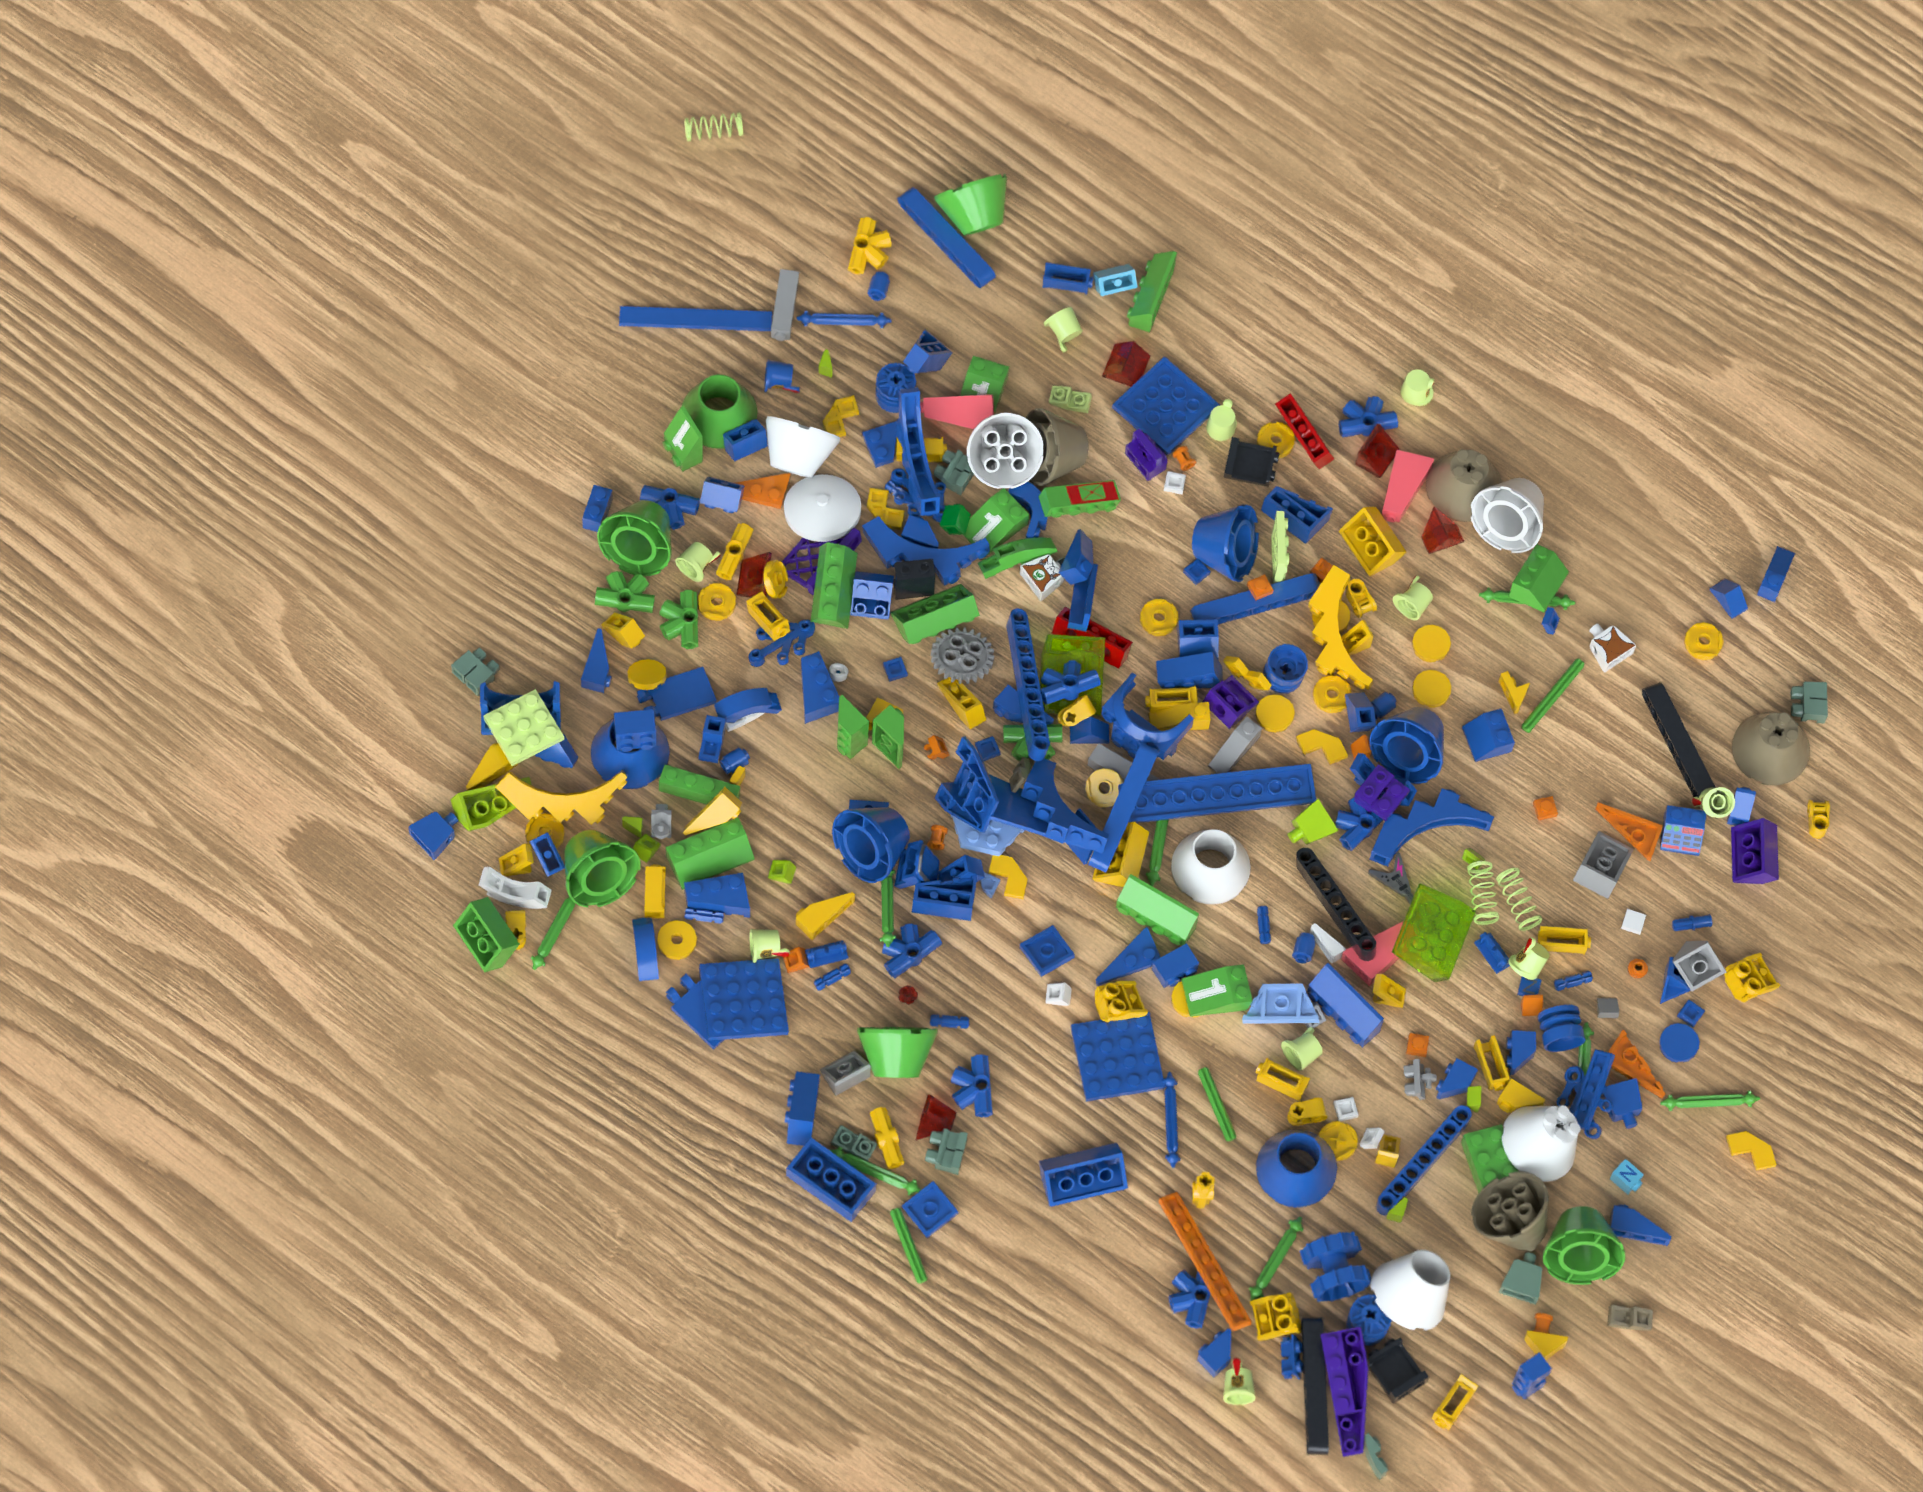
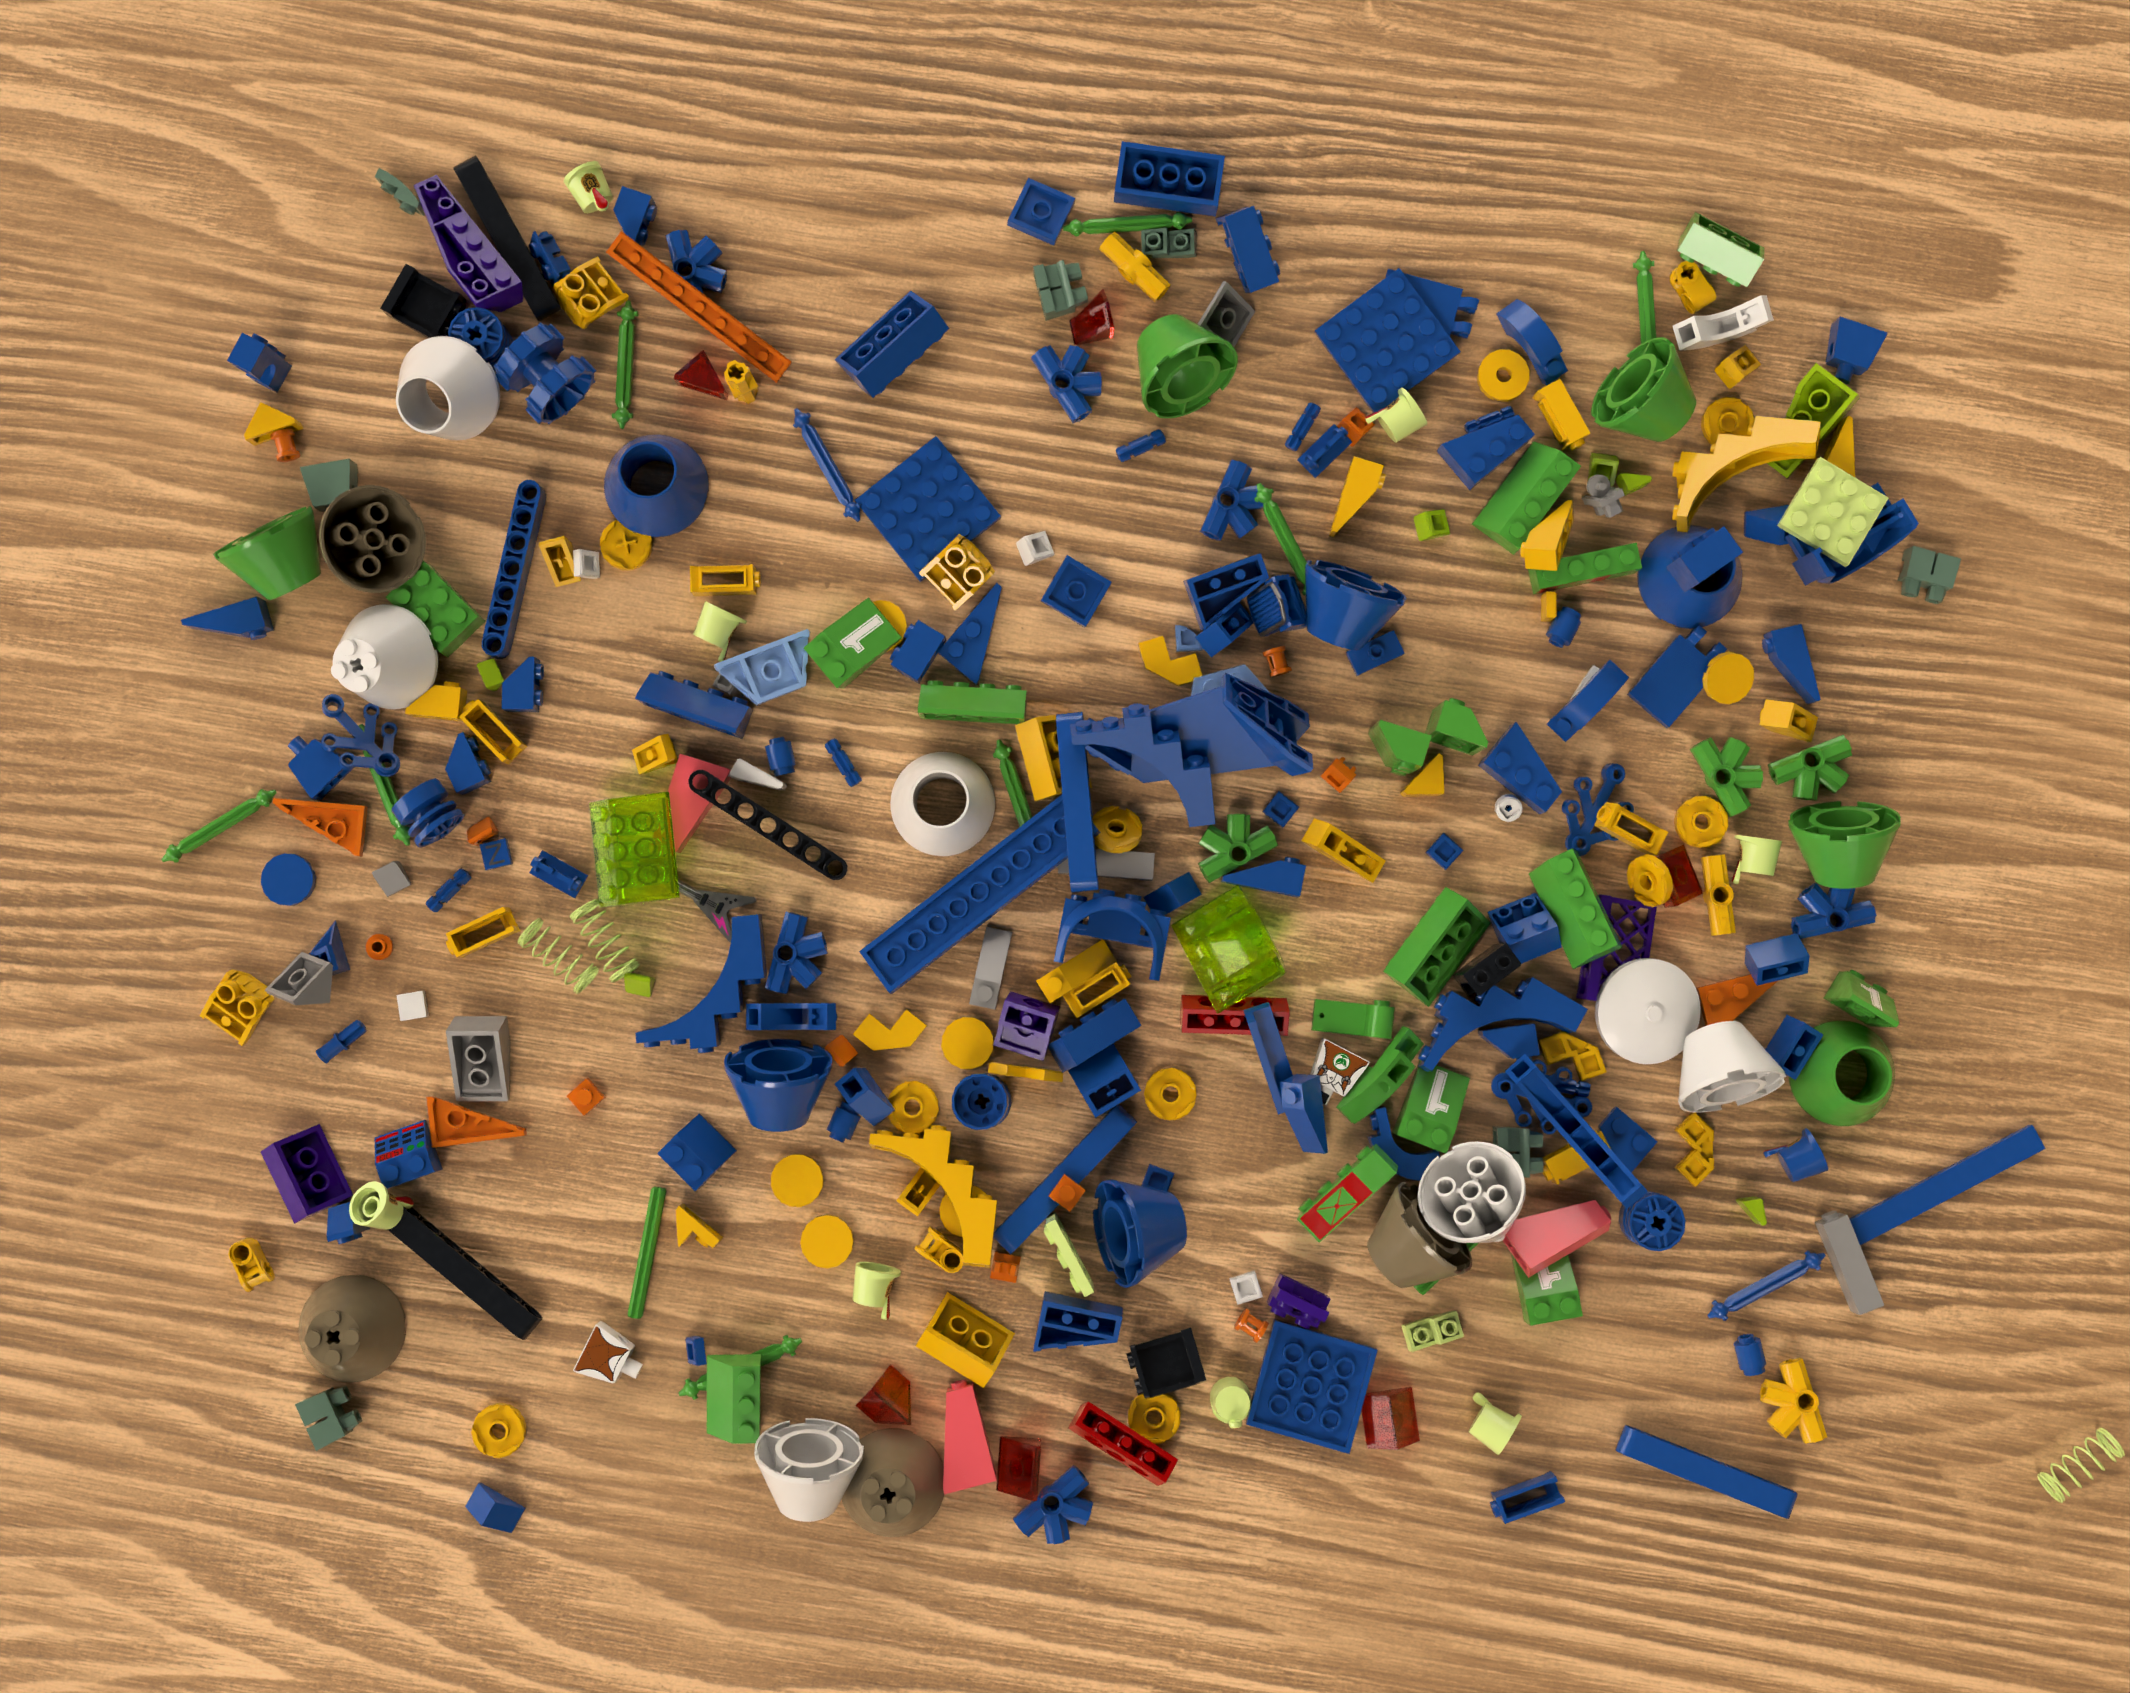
camera: 155 degrees right, 20 degrees up
(547, 854) = (1713, 385): blue brick -> none
(597, 508) = (1912, 859): blue brick -> none
(712, 739) = (1604, 638): blue brick -> none
(907, 990) = (1203, 445): clear red plate -> none
(908, 1245) = (1042, 159): bright green axle -> none
(927, 354) = (1640, 1284): blue wedge -> none
(955, 519) = (1481, 1083): green brick -> none
(961, 661) = (1377, 932): light grey gear -> none
(975, 204) = (1696, 1531): bright green cone -> none
(1005, 595) = (1354, 1018): none -> bright green door
(1020, 774) = (1221, 782): dark tan slope -> none
(1027, 684) = (1281, 916): blue beam -> none
(1068, 684) = (1229, 939): blue piece -> none
(1079, 710) = (1199, 906): yellow piece -> none
(1115, 279) = (1466, 1527): medium azure brick -> none
(1152, 291) = (1412, 1538): bright green slope -> none
(1217, 1104) = (785, 512): bright green axle -> none
(1227, 1218) = (701, 377): none -> clear red slope
(1310, 1112) = (672, 558): yellow piece -> none
(1312, 824) = (848, 916): lime torso -> none
(1345, 1109) = (635, 587): white tile -> none
(1374, 786) = (792, 992): dark purple brick -> none
(1397, 1212) = (509, 490): lime slope -> none
(1417, 388) = (1015, 1586): yellowish green hat -> none
(1417, 1045) = (591, 711): orange plate -> none
(1420, 1079) = (564, 654): light grey hips -> none
(1442, 1418) = (350, 302): yellow window -> none
(1529, 959) = (506, 878): yellowish green hat -> none
(1592, 1088) = (353, 750): blue tile -> none
(1627, 1177) = (270, 675): medium azure brick -> none
(1630, 1318) = (191, 511): dark tan slope -> none
(1691, 1013) = (292, 925): blue tile -> none
(1745, 1142) = (132, 794): yellow tile -> none
(1775, 574) = (449, 1574): blue slope -> none

